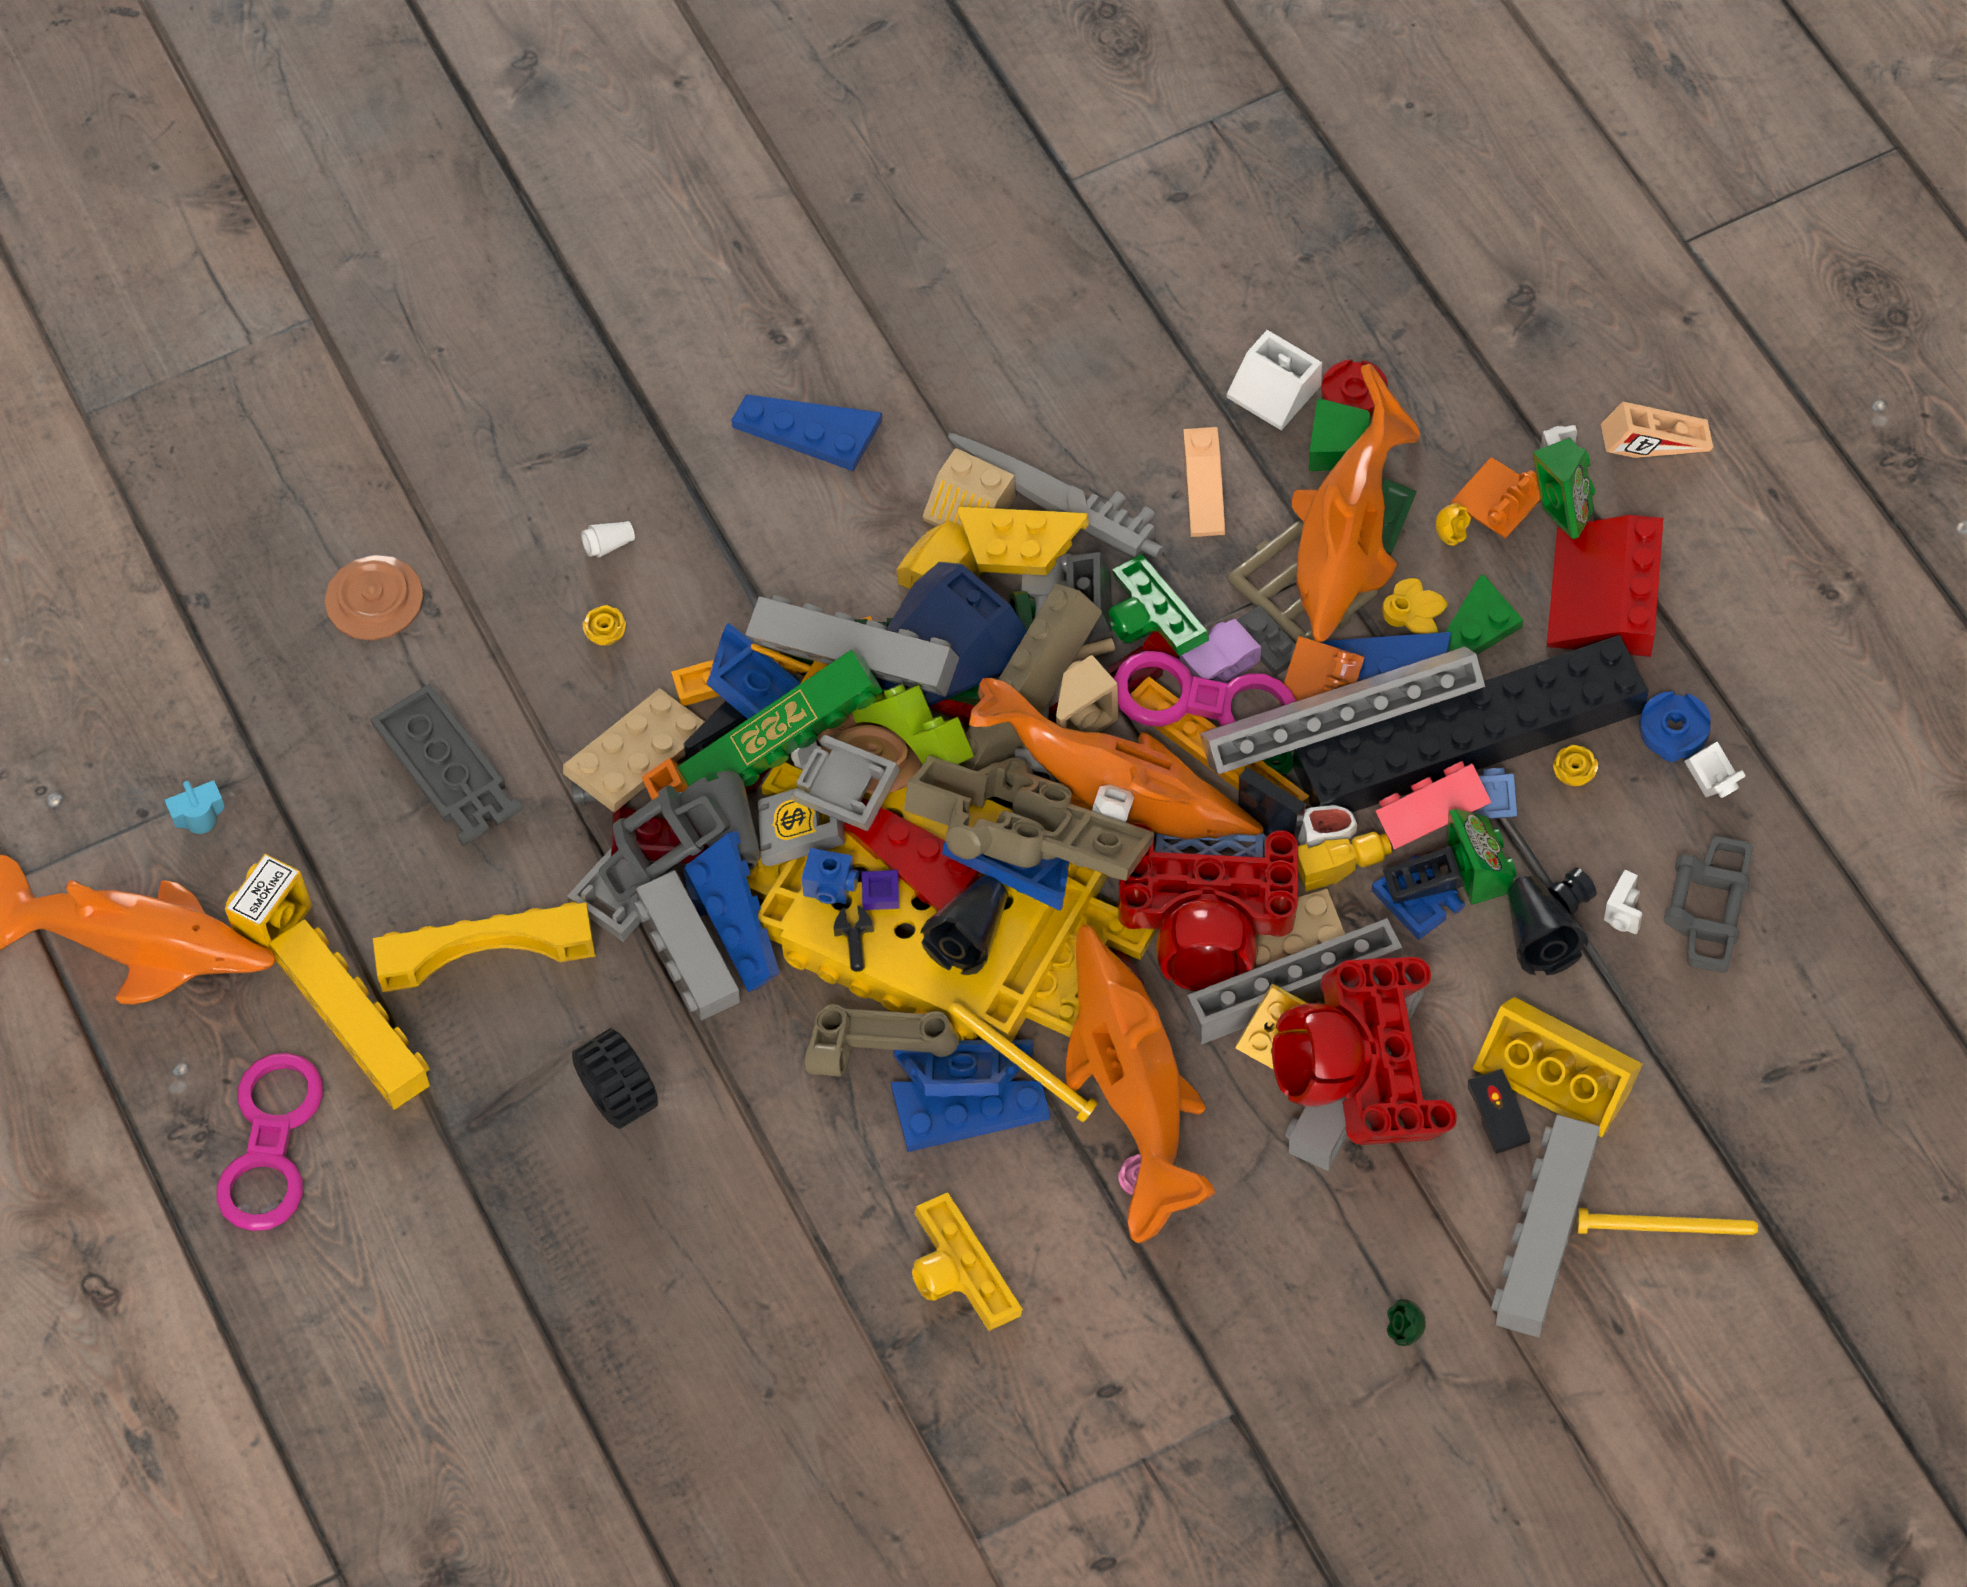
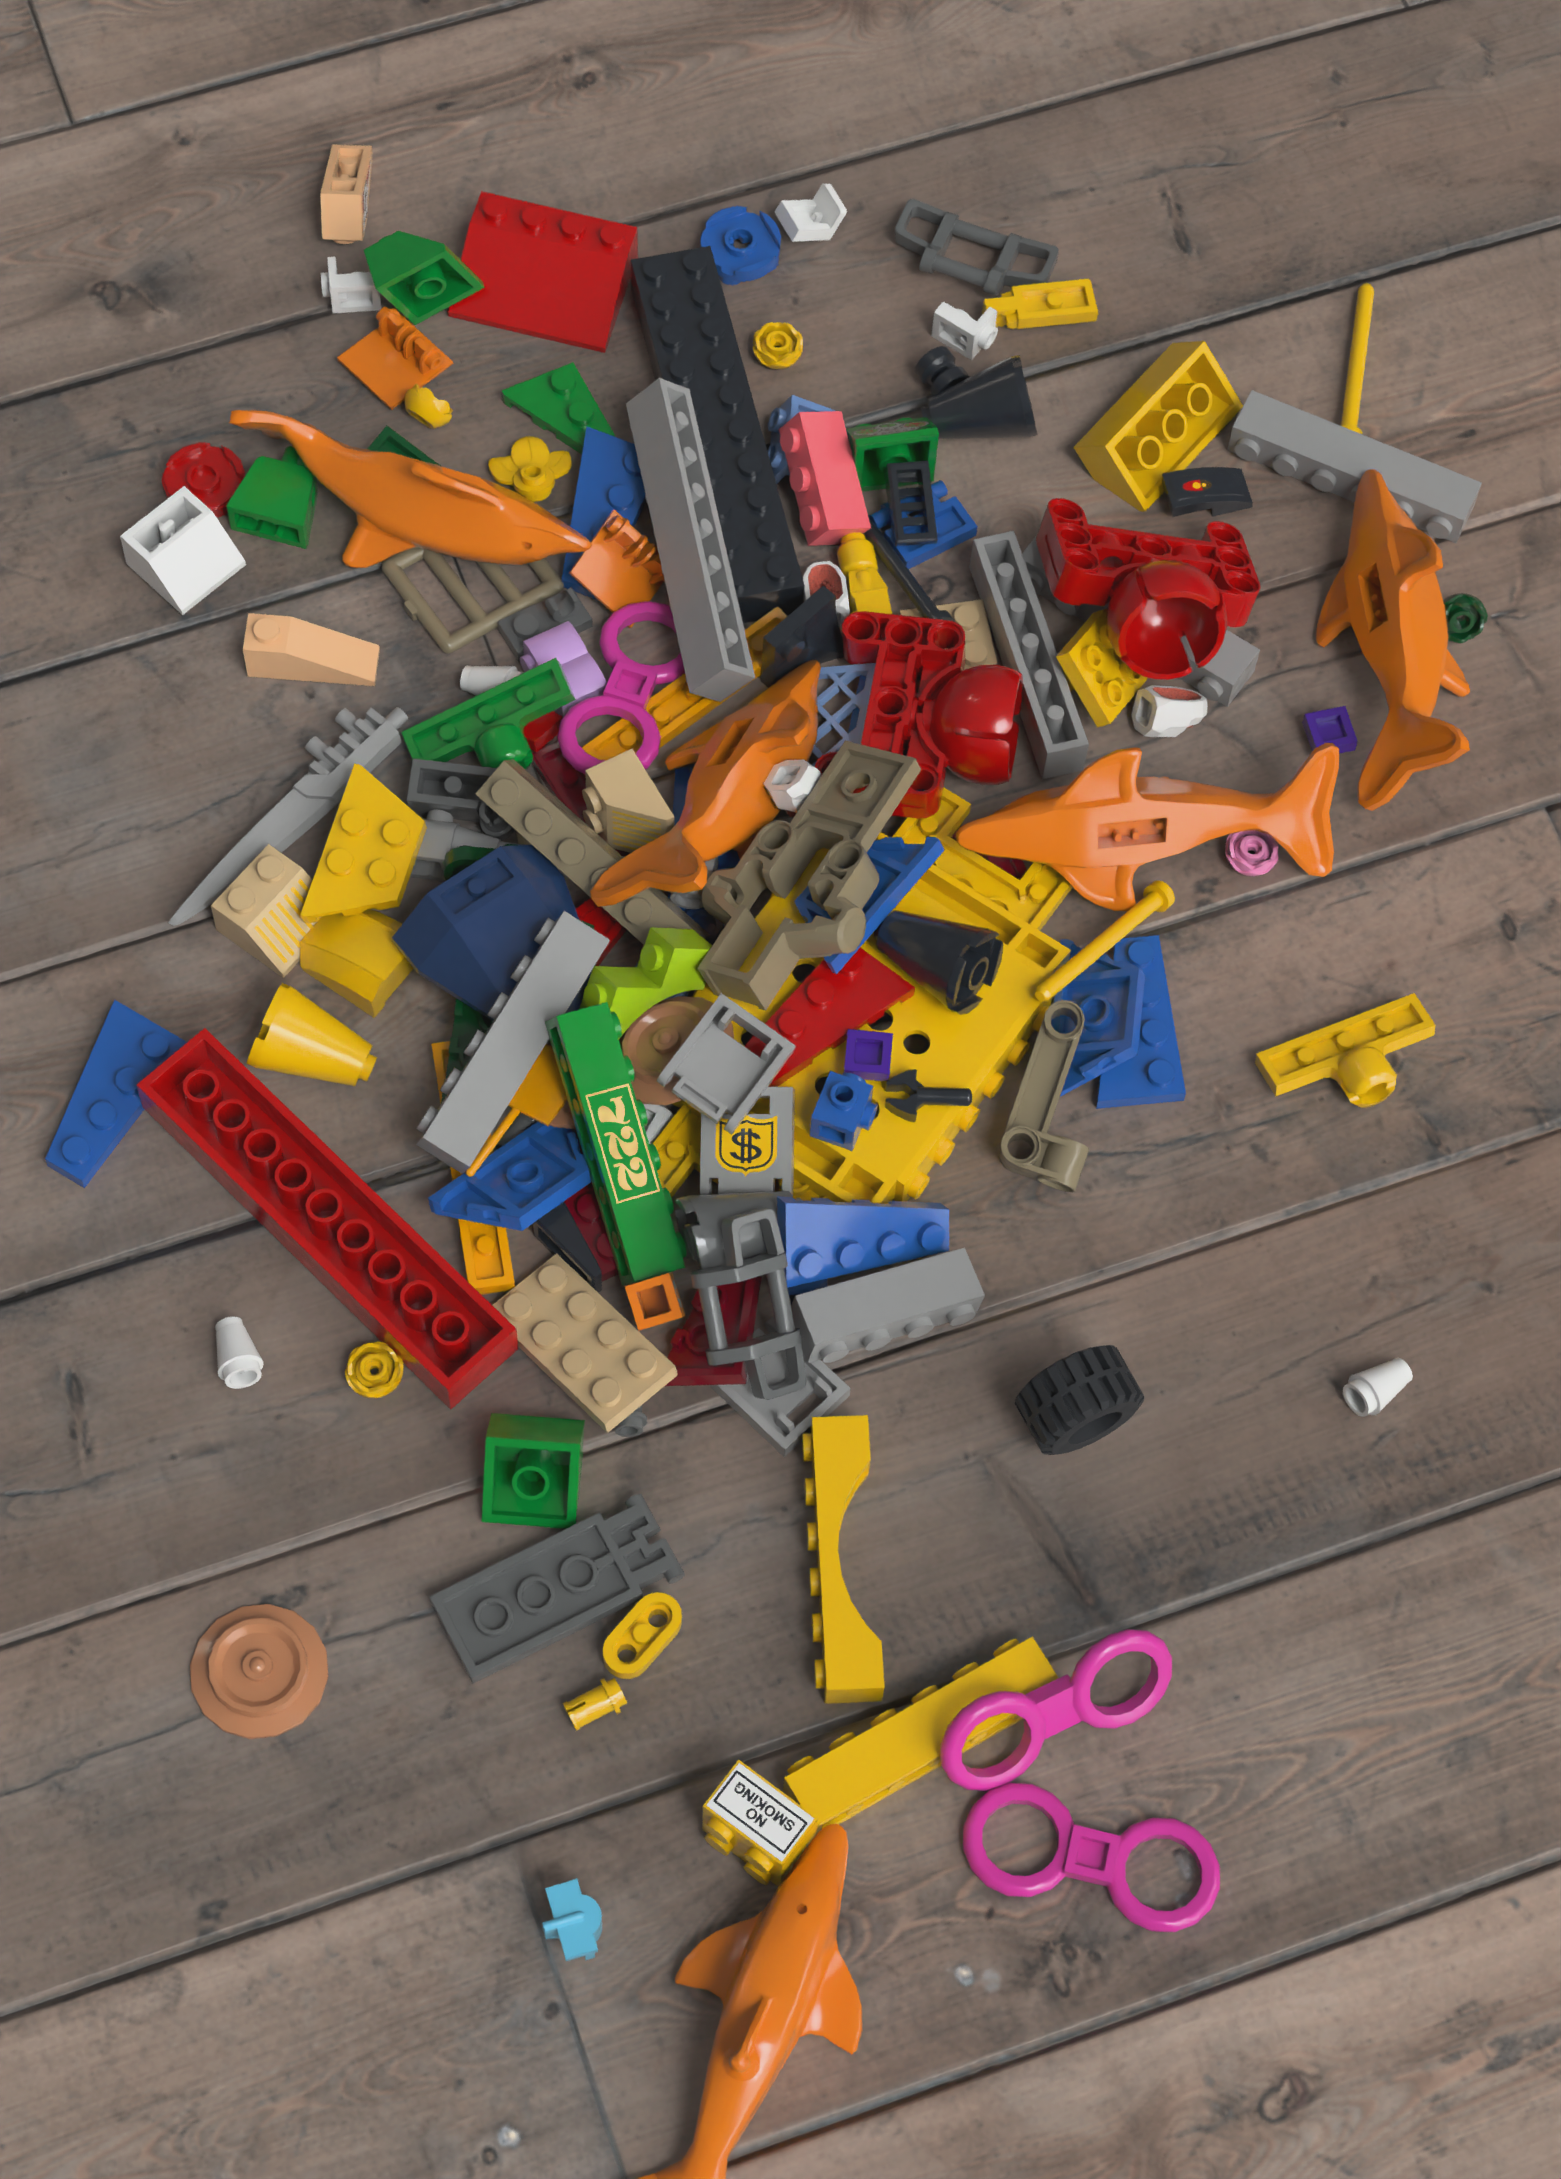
camera: 90 degrees left, 5 degrees up
(366, 809) = (595, 1703): none -> yellow pin
(369, 1091) = (1055, 1709): none -> dark pink bar
(417, 824) = (640, 1636): none -> yellow plate
(534, 734) = (532, 1470): none -> green slope
(664, 1307) = (1376, 1386): none -> white cone
(714, 570) = (328, 1218): none -> red brick
(858, 532) = (309, 1042): none -> yellow cone
(1203, 606) = (482, 678): none -> white cone
(1266, 1100) = (1167, 710): none -> white rock
(1269, 1228) = (1330, 727): none -> dark purple plate
(1309, 908) = (903, 575): none -> black bar
(1371, 1261) = (1400, 621): none -> orange animal
(1667, 964) = (1045, 304): none -> yellow hinge

